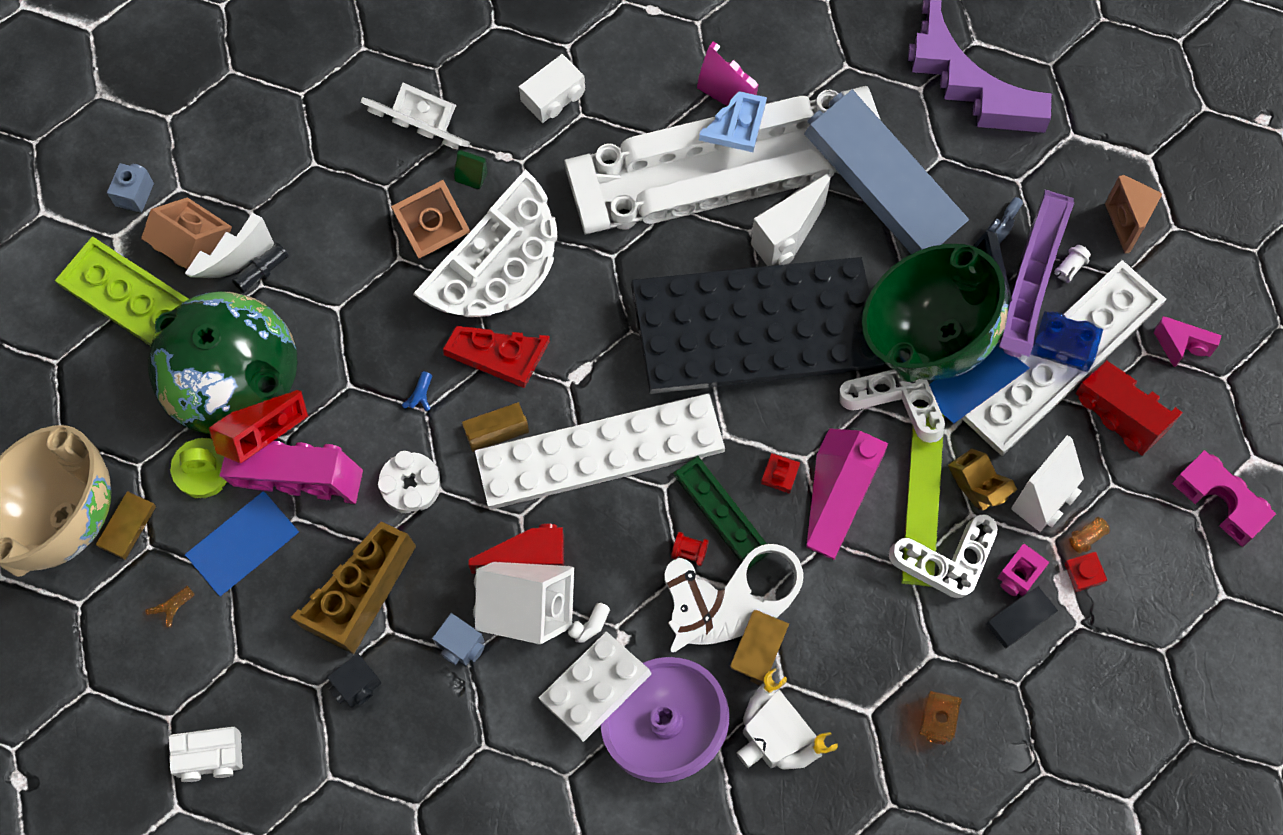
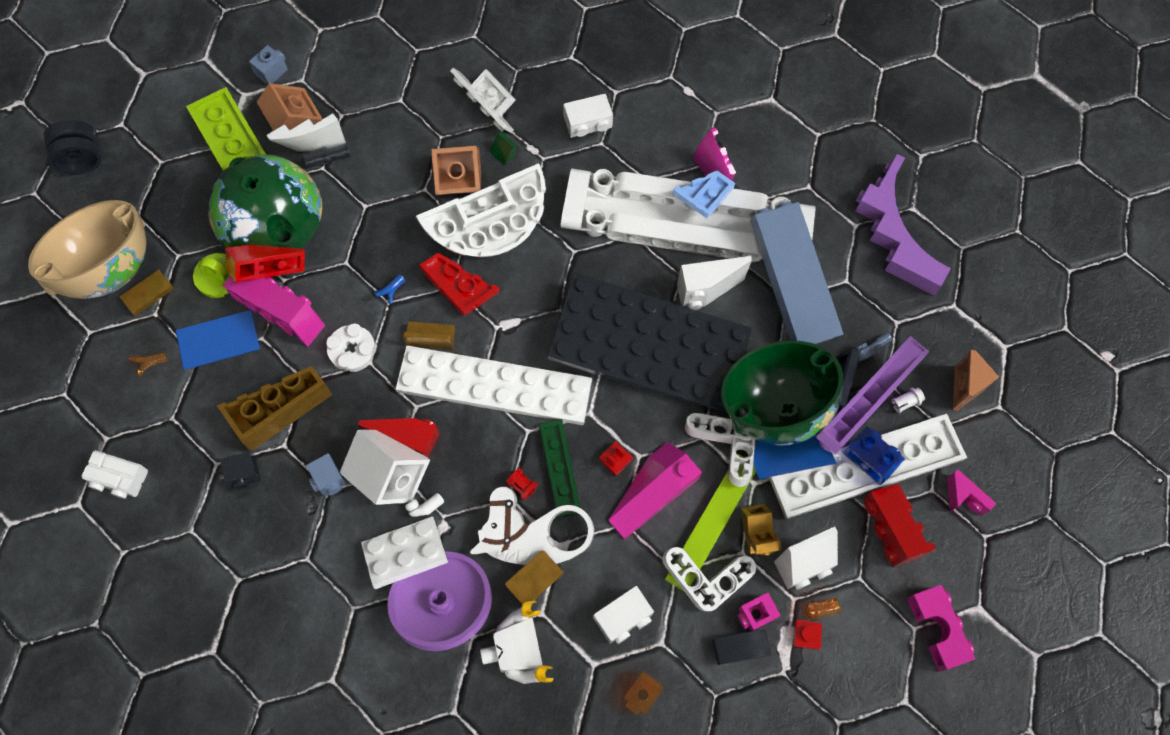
camera: 20 degrees right, 0 degrees up
(877, 642) = (623, 615): none -> white brick

